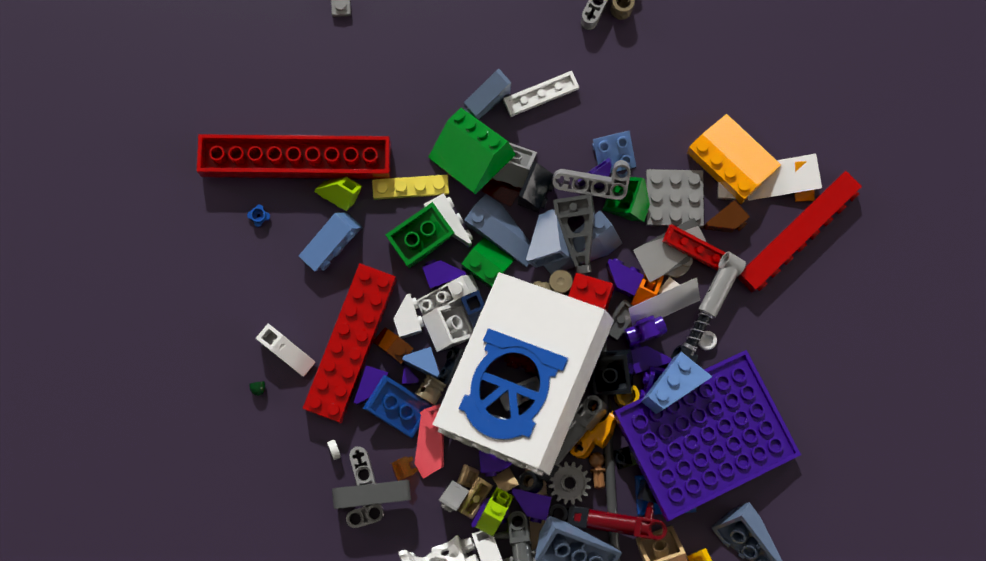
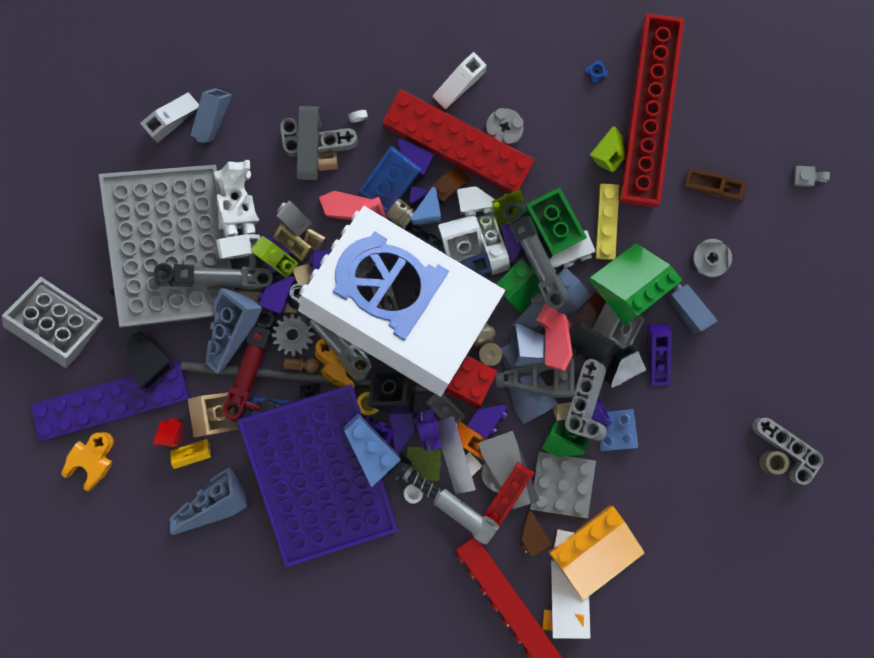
camera: 100 degrees right, 5 degrees up
(257, 388) = (427, 52): dark green hinge -> none
(321, 290) = (509, 117): none -> light grey plate
(330, 241) = (562, 136): medium blue wedge -> none
(361, 87) = (716, 185): none -> reddish brown slope
(383, 473) = (327, 161): none -> tan slope
(402, 468) = (329, 178): clear orange tile -> none
(411, 282) = (500, 203): none -> clear neon green piece
(430, 93) = (719, 250): none -> light grey plate
(437, 260) = (526, 233): none -> dark grey piece
(534, 121) = (659, 354): none -> dark purple slope
(537, 217) = (557, 338): none -> coral piece
(541, 93) = (688, 365): white plate -> none
(552, 152) = (623, 366): none -> slope
(605, 205) = (561, 411): none -> tan slope
(676, 333) = (425, 462): none -> clear neon green piece

